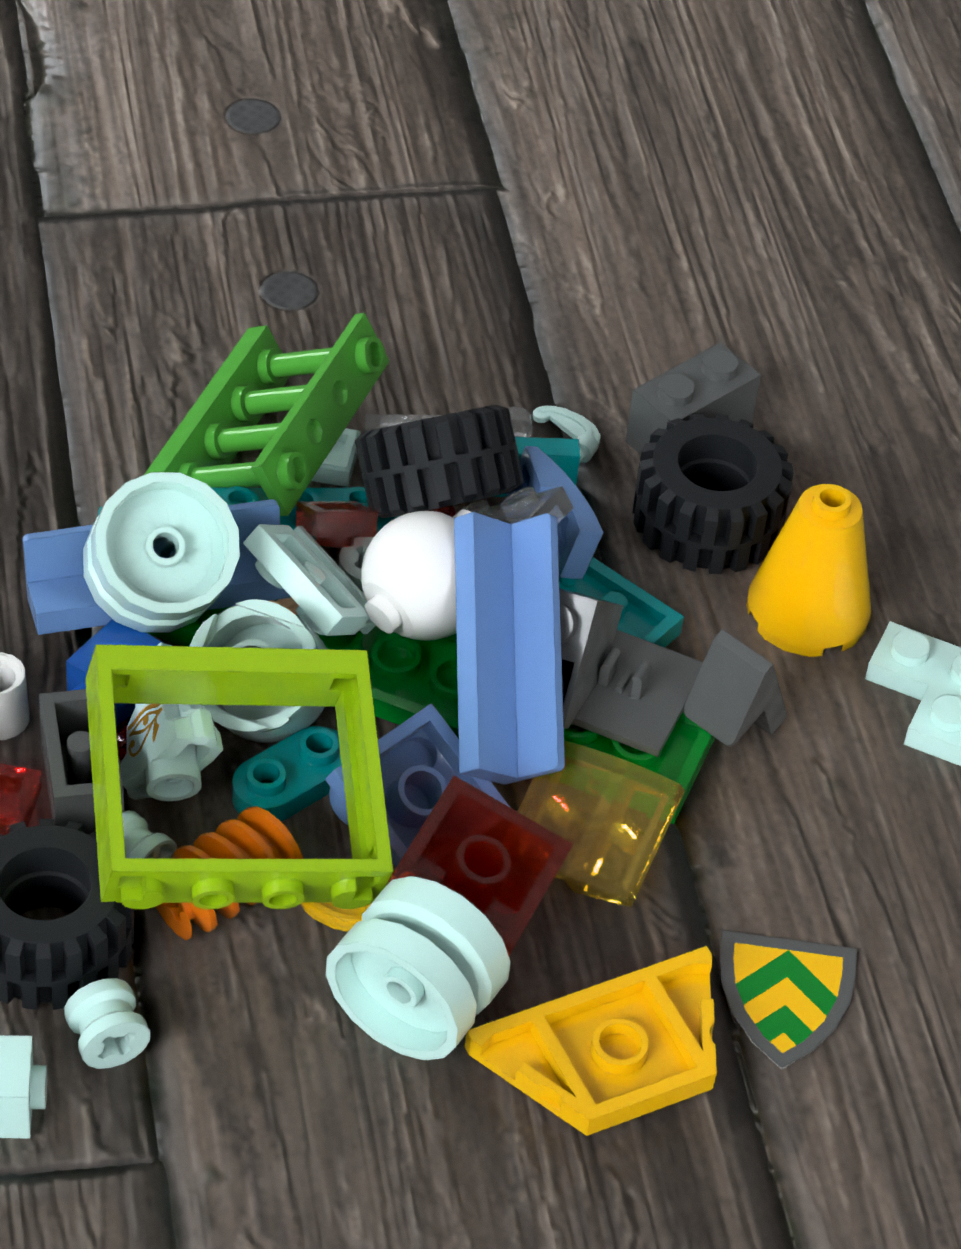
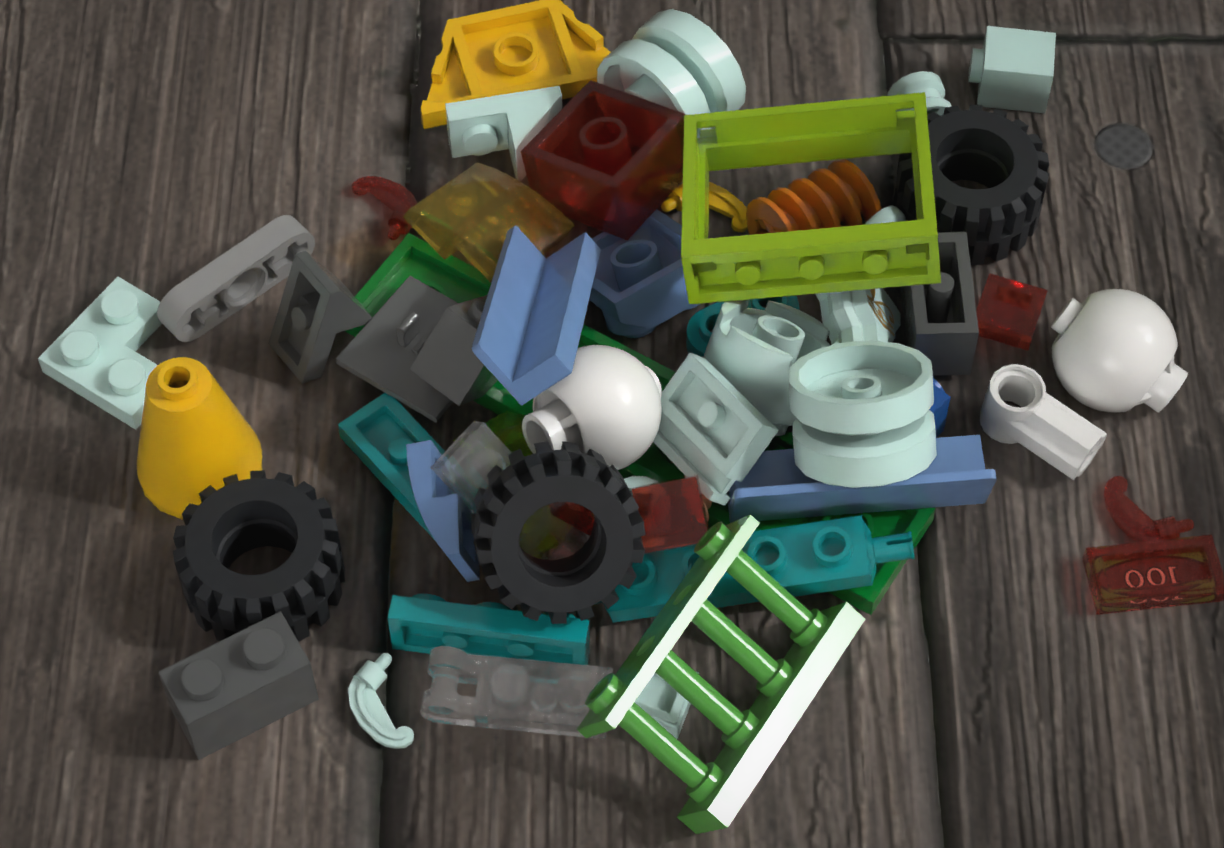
camera: 165 degrees left, 10 degrees up
(594, 951) = (501, 123): none -> light aqua slope
(708, 880) = (393, 196): none -> clear red piece
(786, 991) = (360, 112): sticker -> none
(842, 756) = (213, 292): none -> light grey beam

